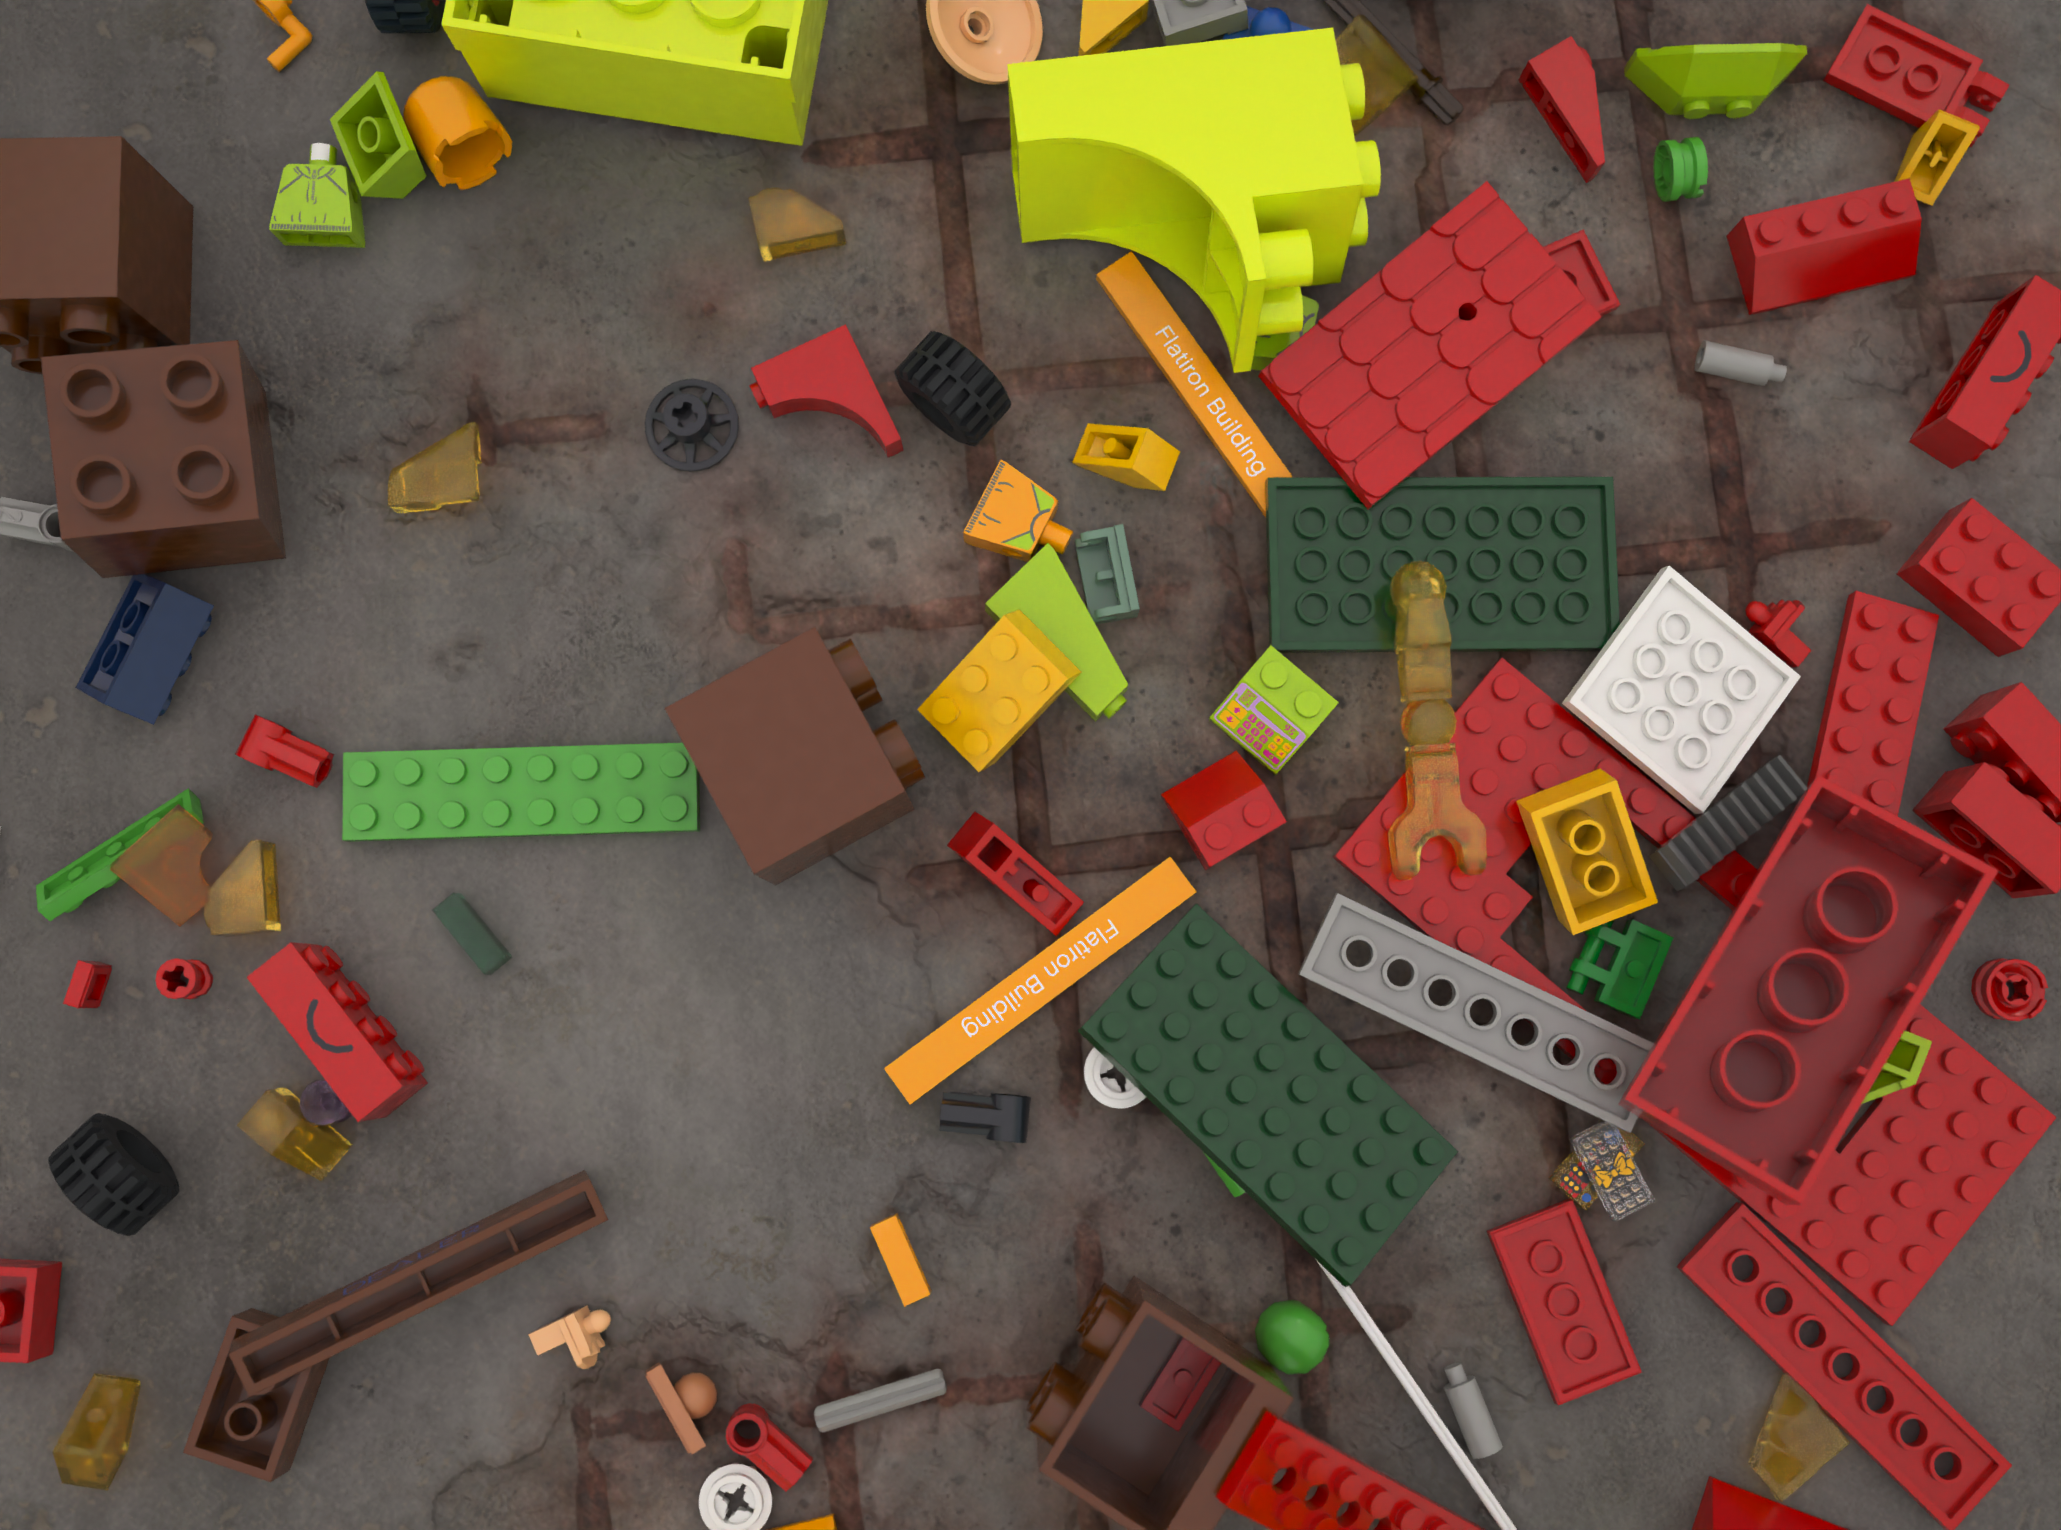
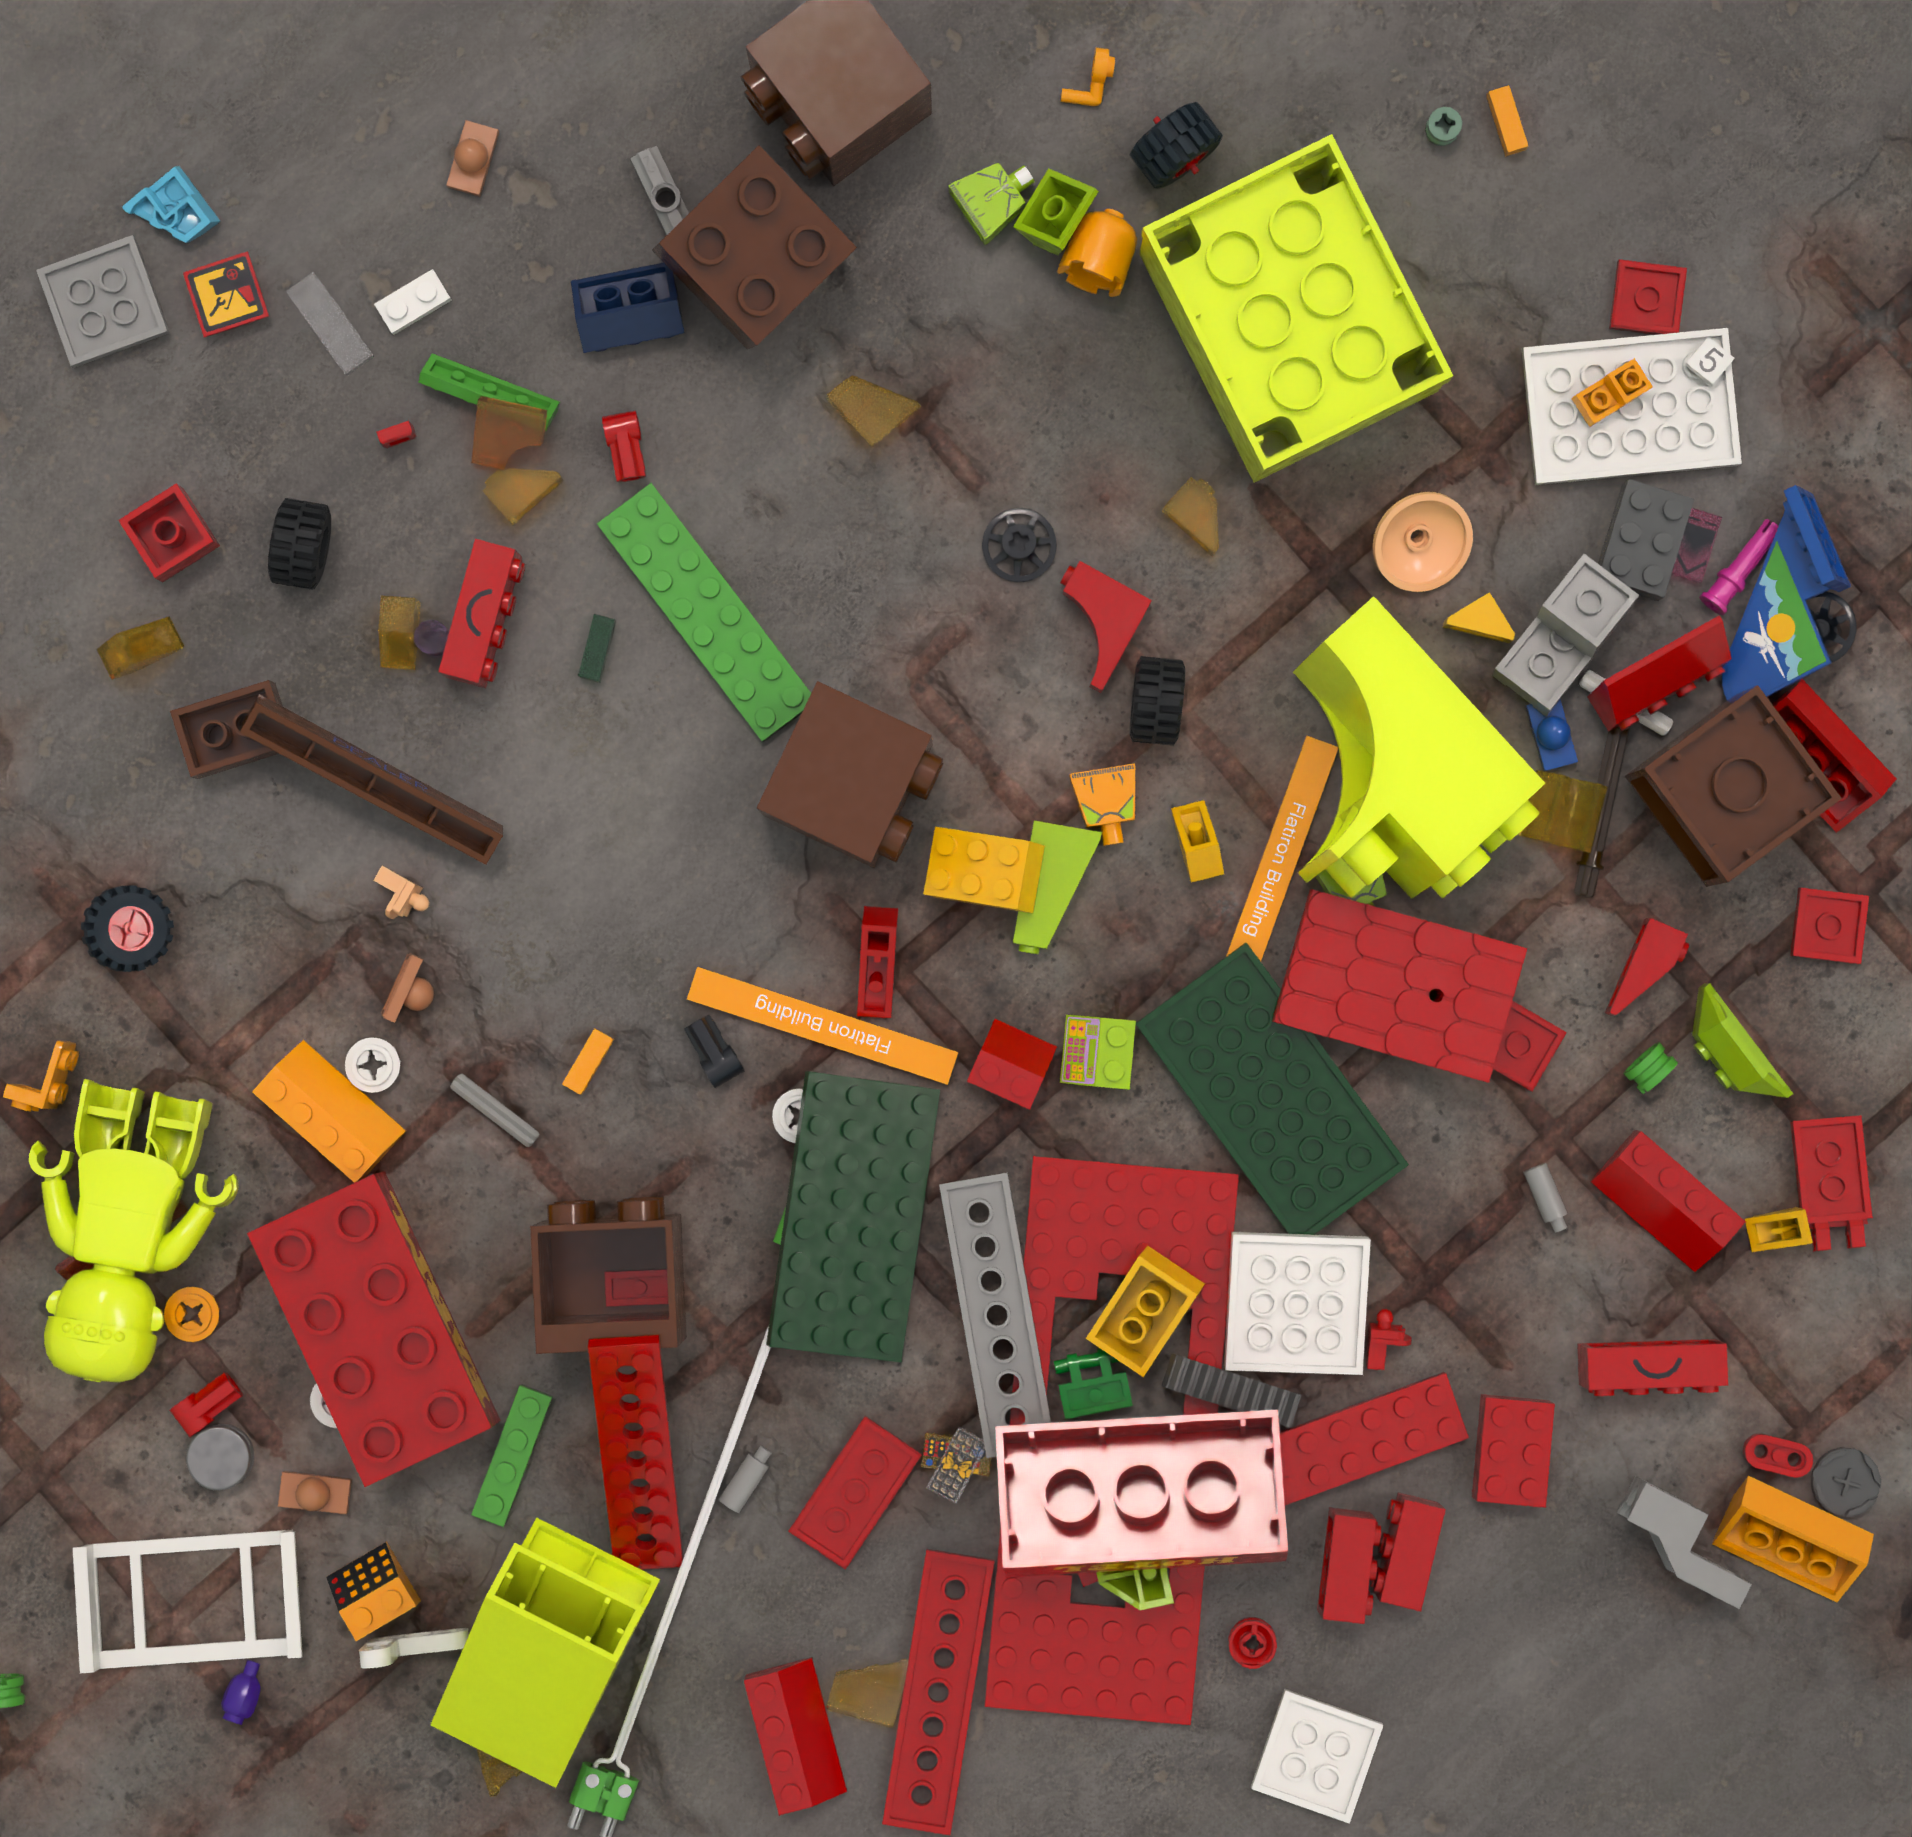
camera: 60 degrees right, 5 degrees up
(171, 985) = (432, 487): red bush -> none
(771, 1450) = (418, 1064): red piece -> none
(1107, 574) = (1110, 883): sand green hinge -> none
(1292, 1337) = (712, 1338): bright green hair -> none
(1428, 726) = (1153, 1156): clear yellow piece -> none

